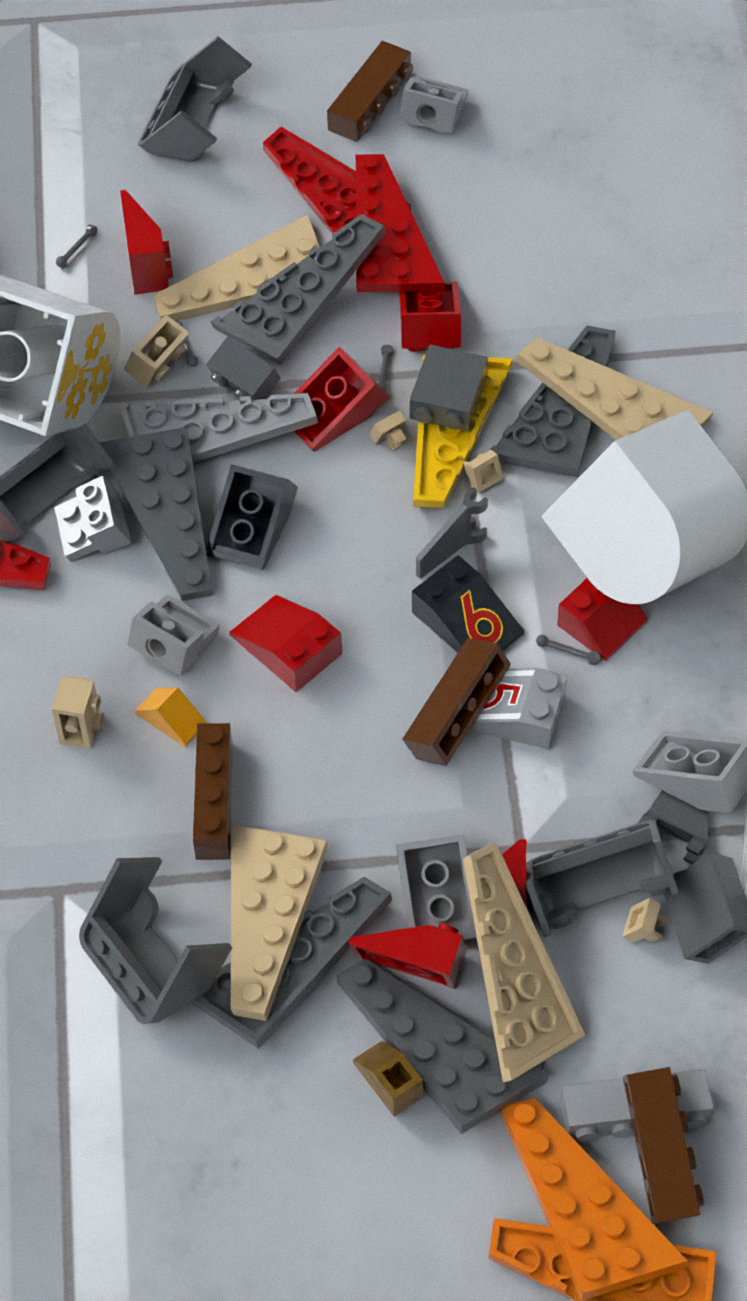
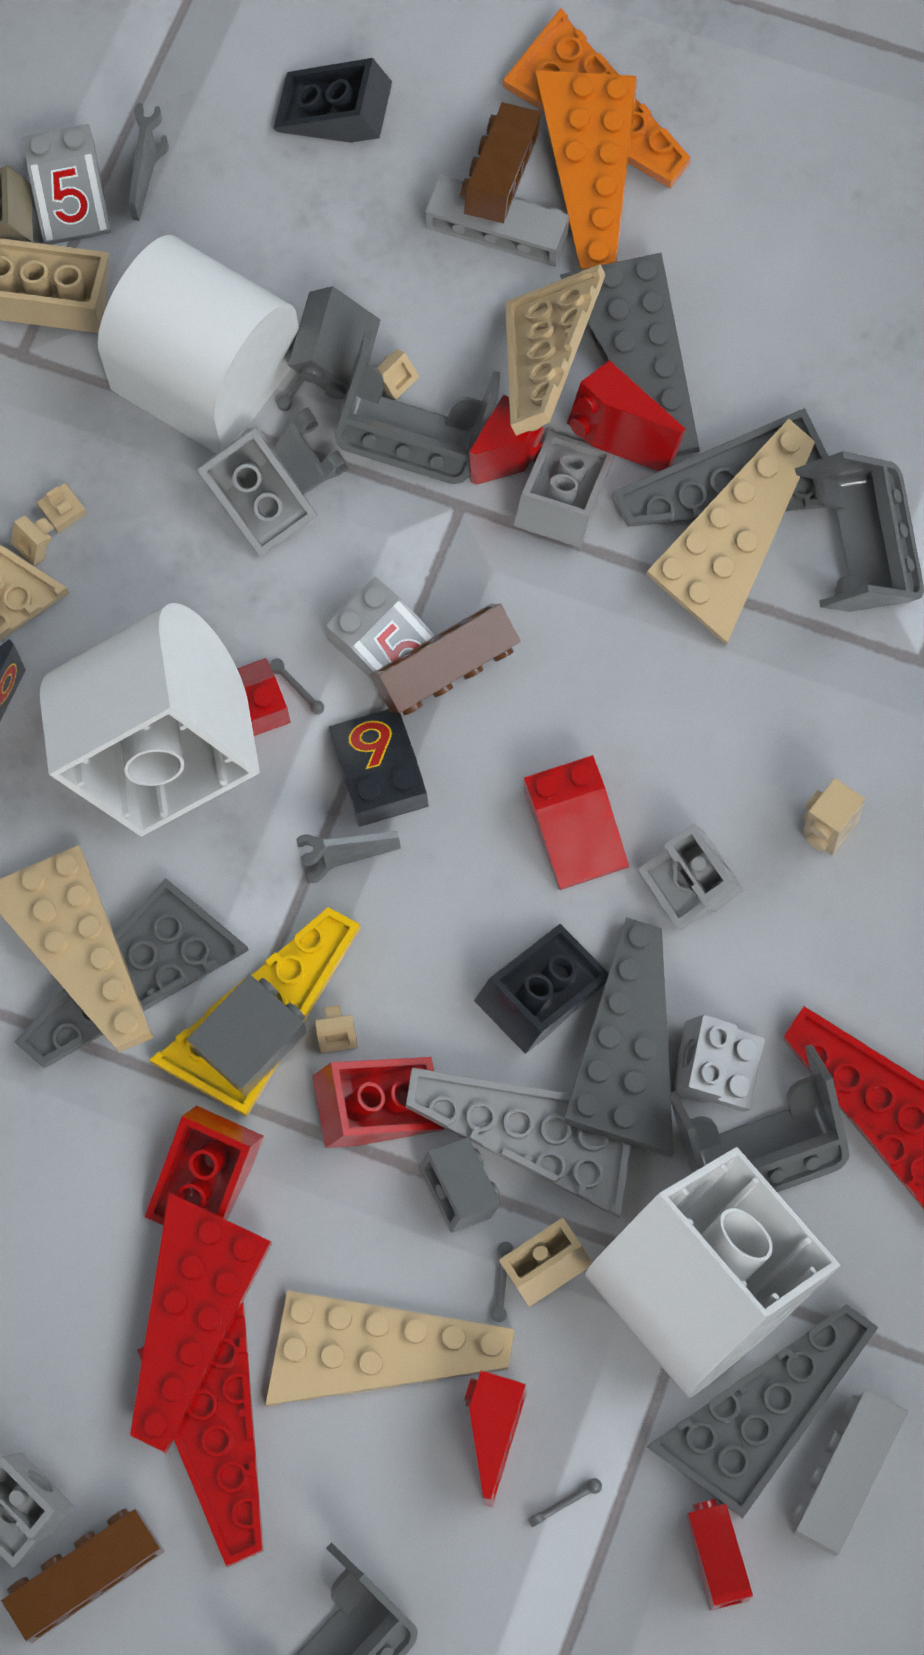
camera: 150 degrees left, 15 degrees up
(171, 714) = (735, 795): light orange slope -> none
(213, 791) = (730, 679): reddish brown brick -> none
(298, 295) = (360, 1257): dark grey wing -> none
(386, 351) = (277, 1155): dark grey hinge -> none
(390, 1076) = (699, 333): pearl gold slope -> none
(484, 470) = (264, 927): tan tile -> none

